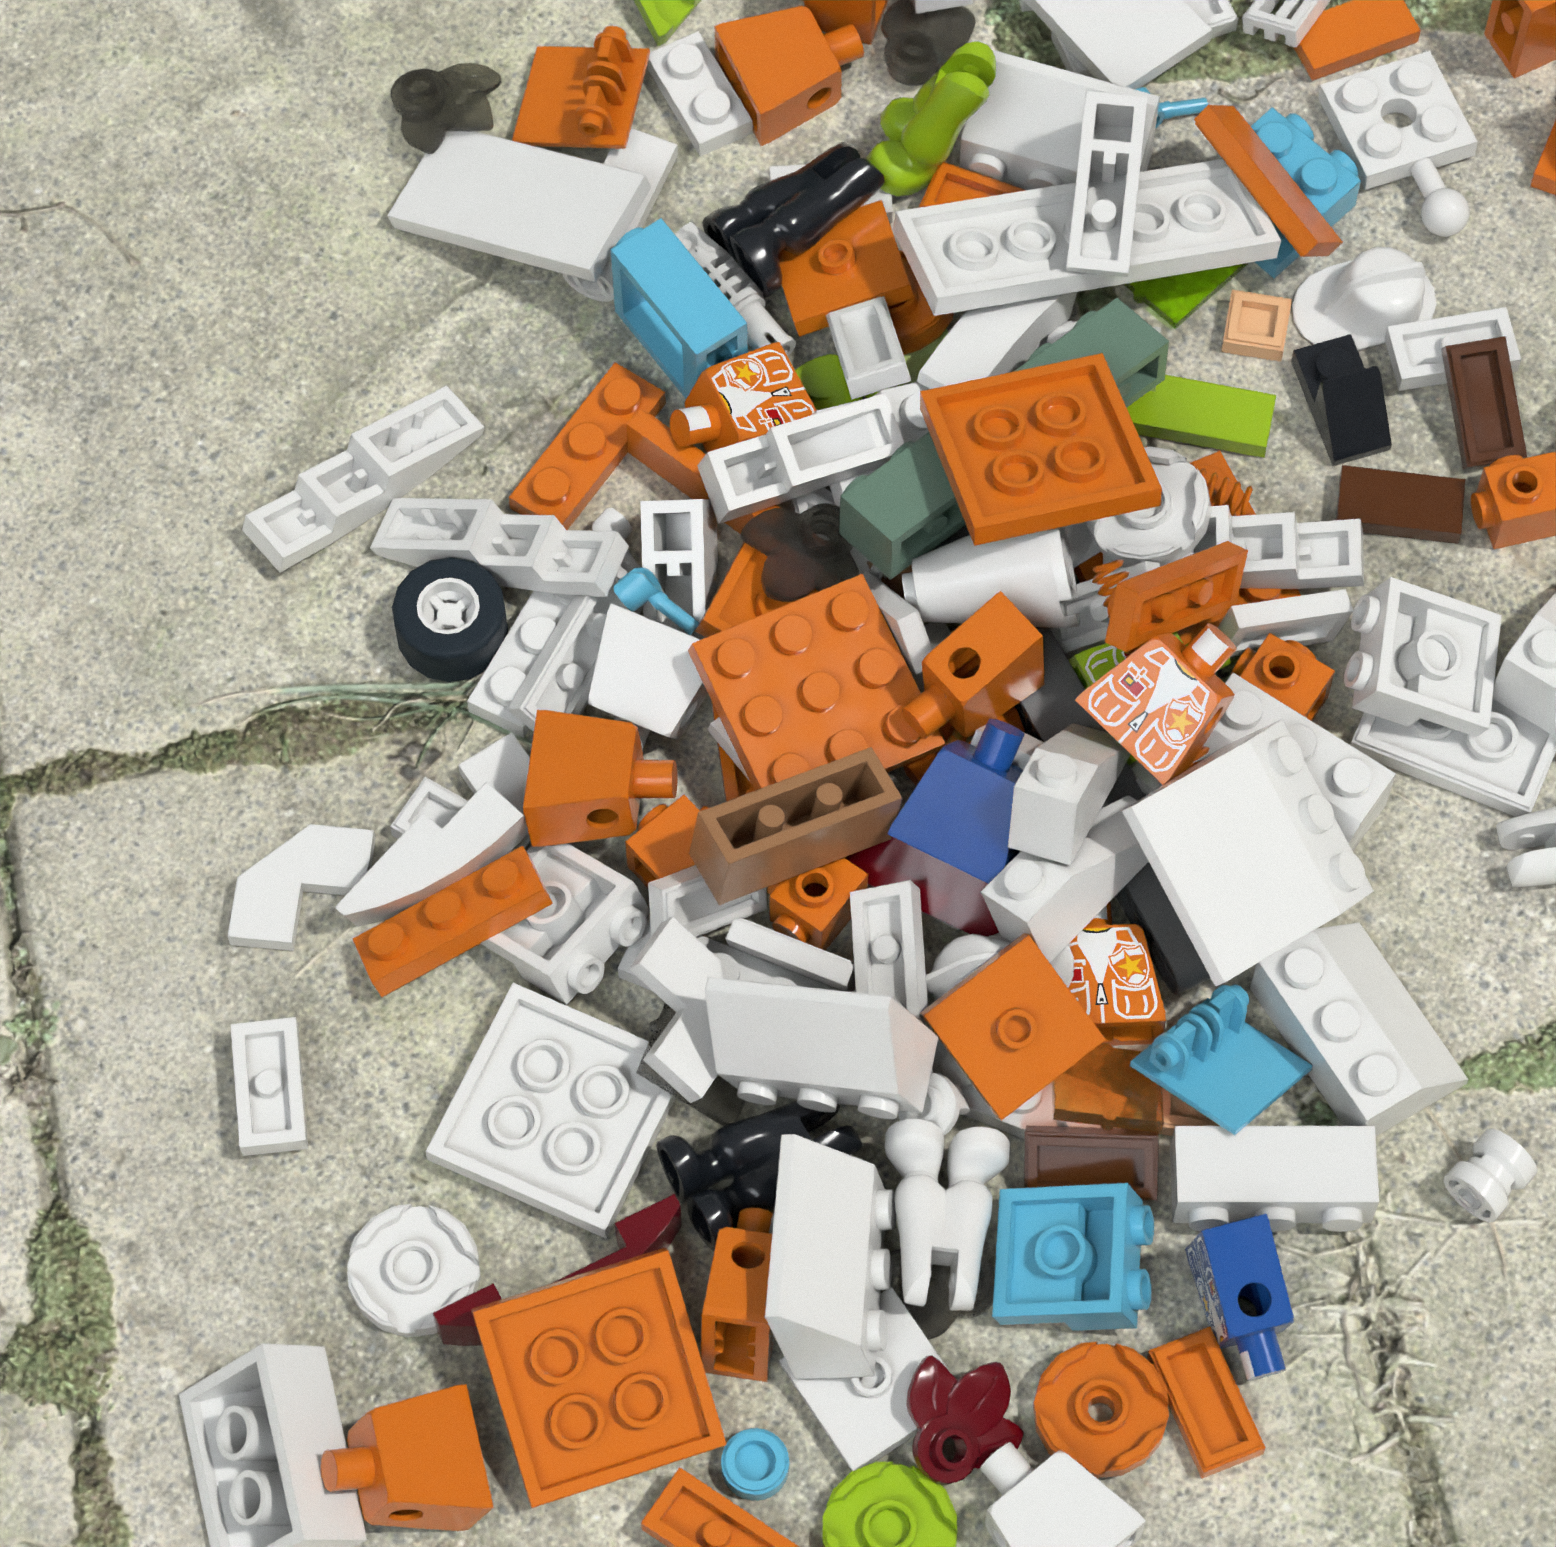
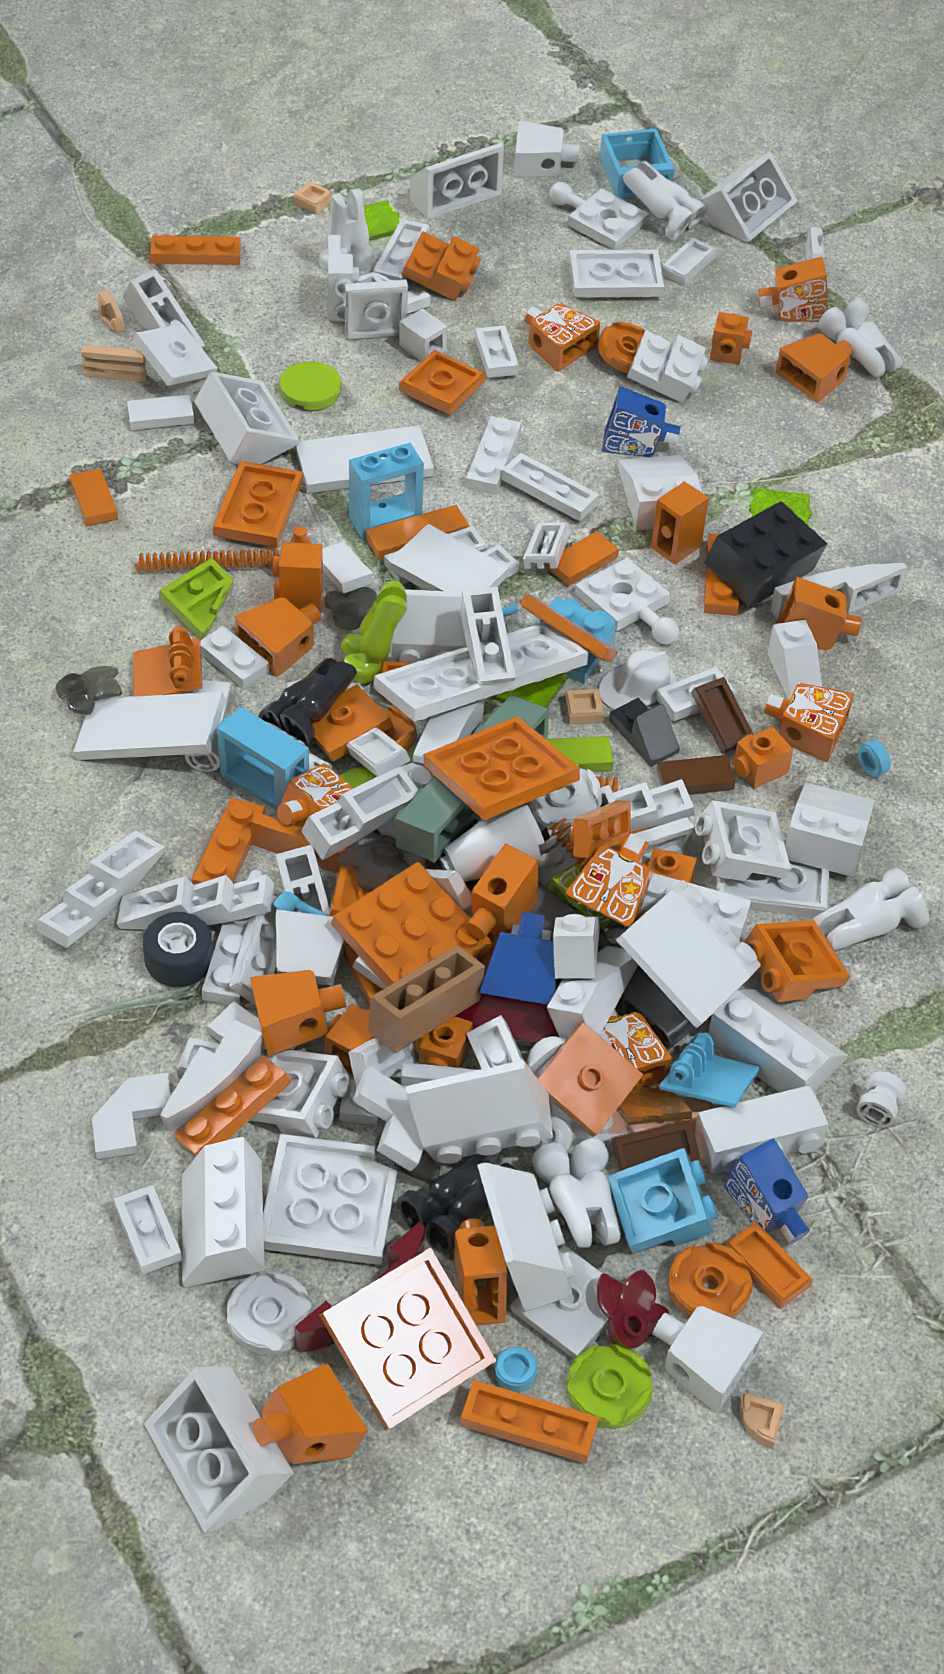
camera: 20 degrees left, 15 degrees down
(386, 1095) = (222, 1213): none -> white slope
(1438, 890) = (795, 959): none -> orange plate

